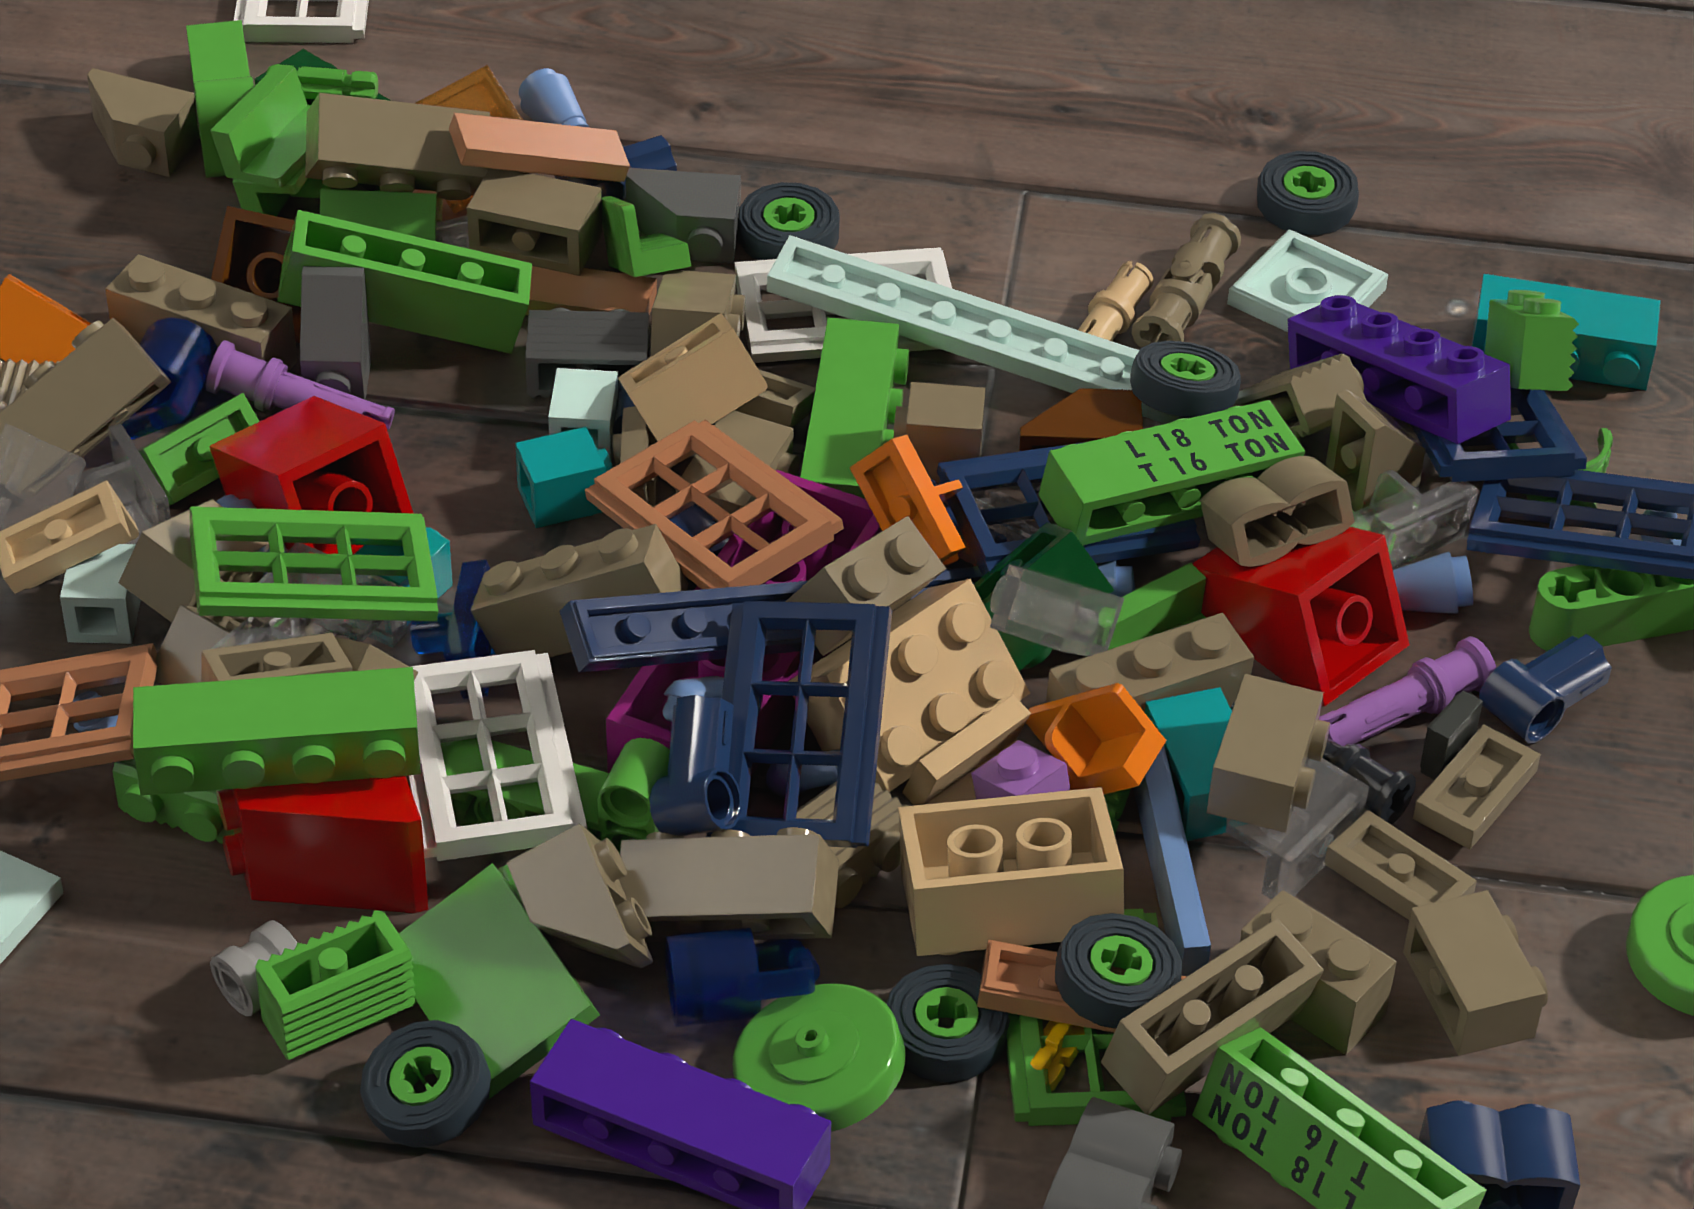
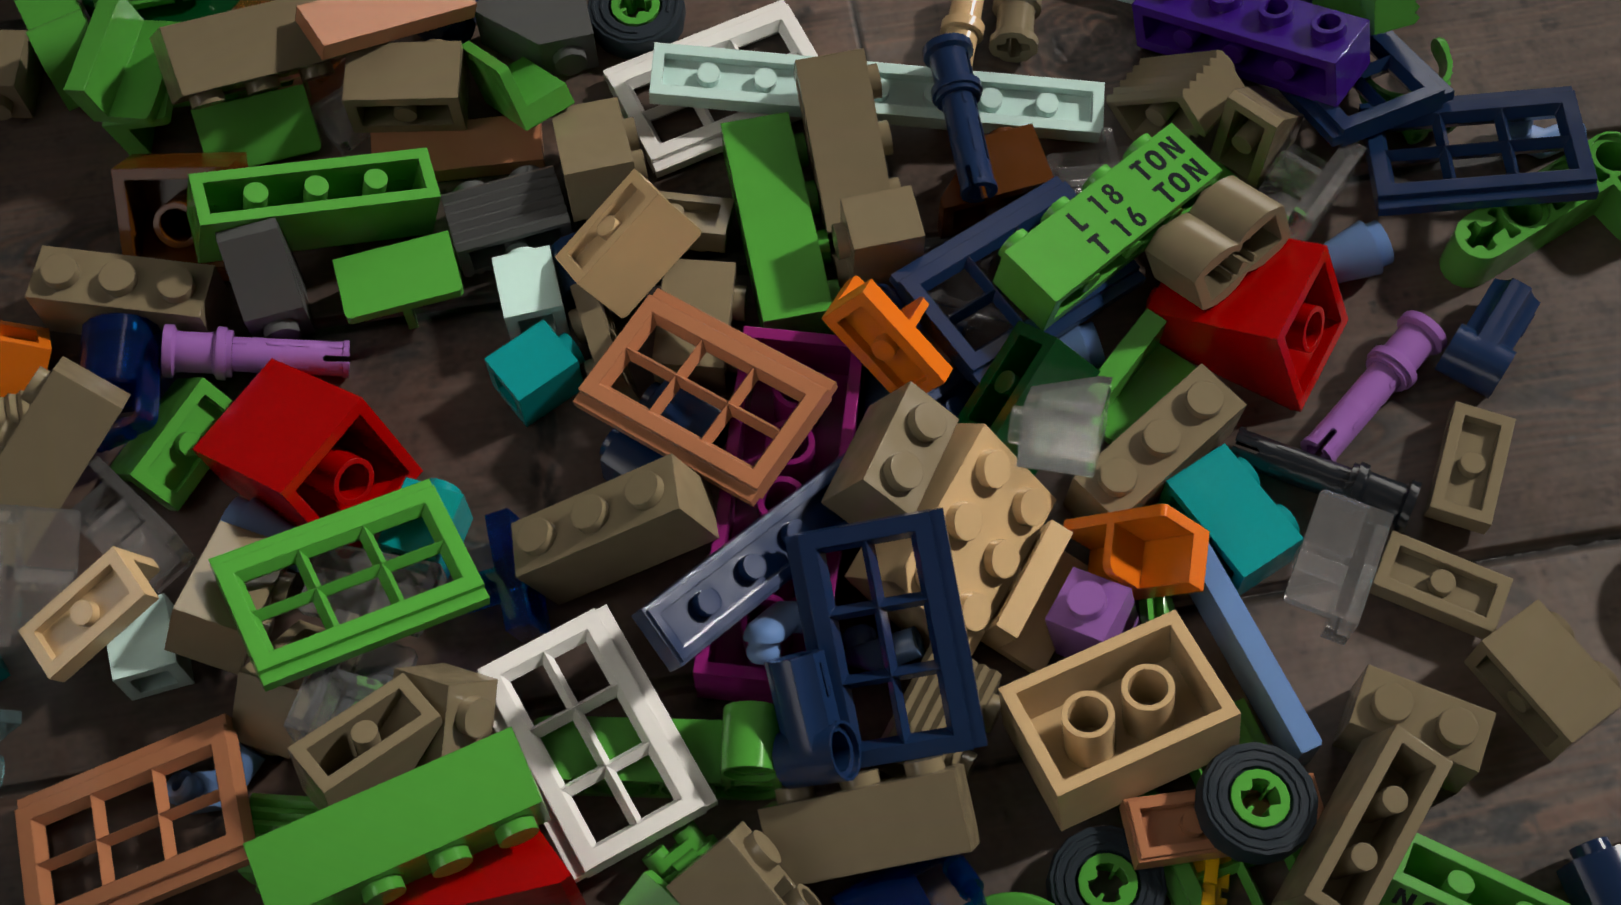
camera: 15 degrees left, 20 degrees up
(463, 367) = (398, 278): none -> bright green panel
(947, 329) = (843, 128): none -> dark tan brick
(1071, 344) = (957, 95): none -> dark blue pin
(1184, 379) = (1070, 103): black bush -> none
(1267, 752) = (1307, 520): dark tan brick -> none
(1450, 733) = (1430, 420): pearl dark grey tile -> none

